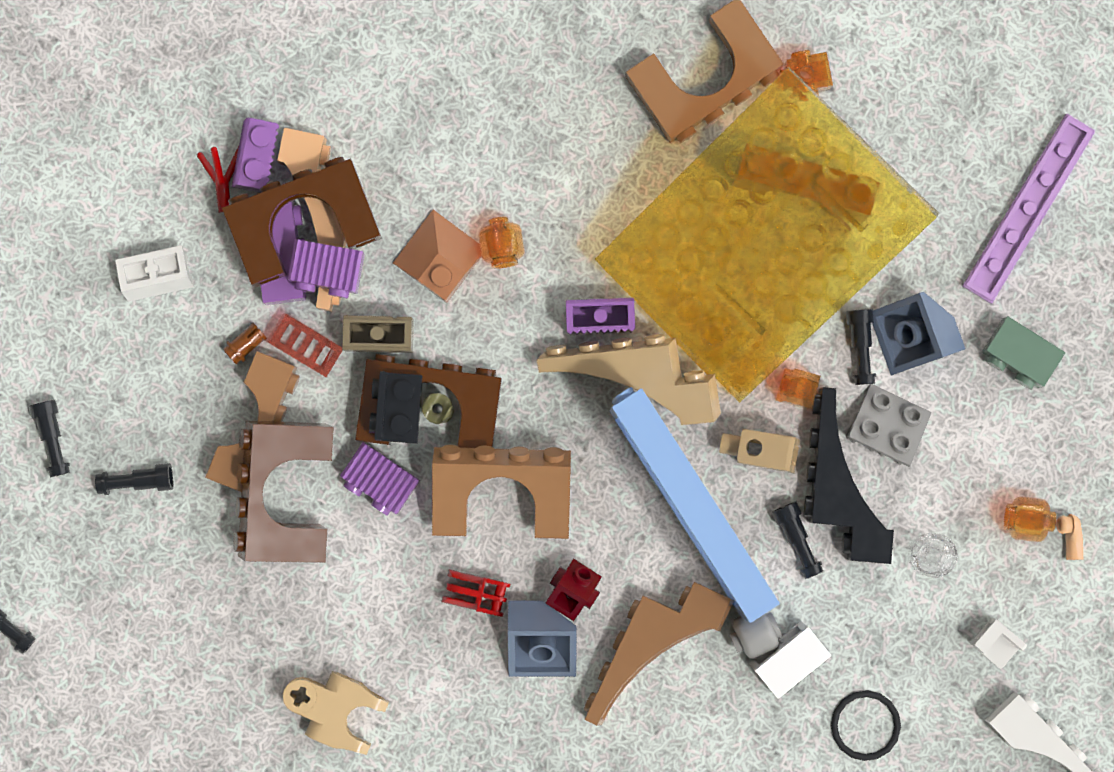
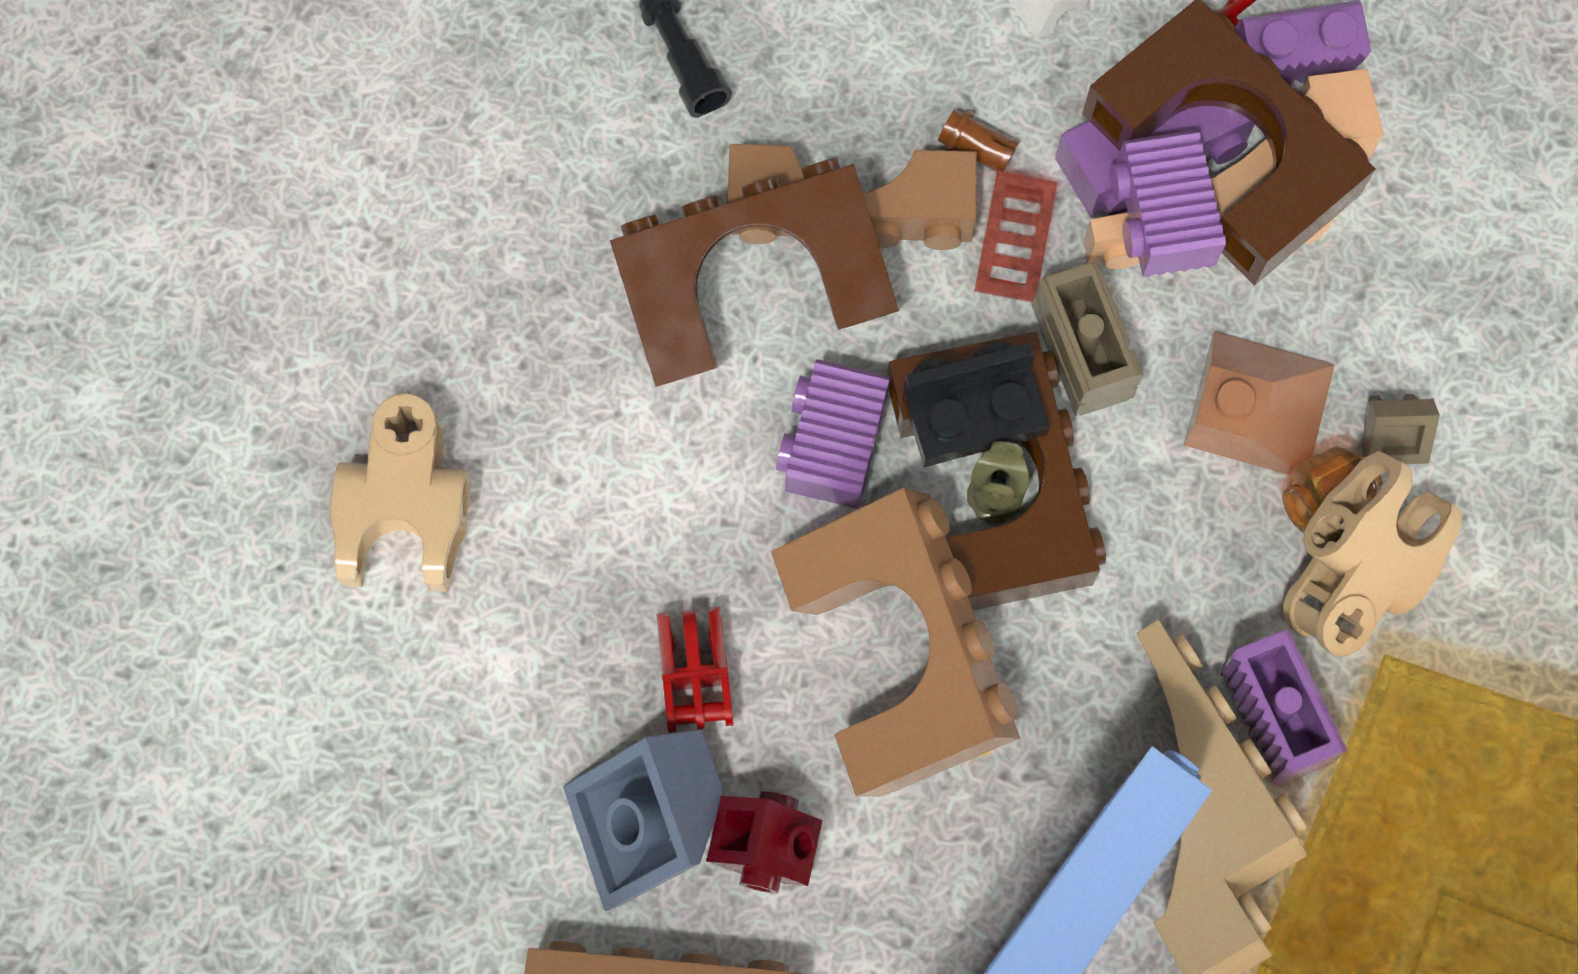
camera: 70 degrees right, 15 degrees down
(481, 194) = (1401, 428): none -> dark tan tile
(542, 243) = (1368, 555): none -> tan piece

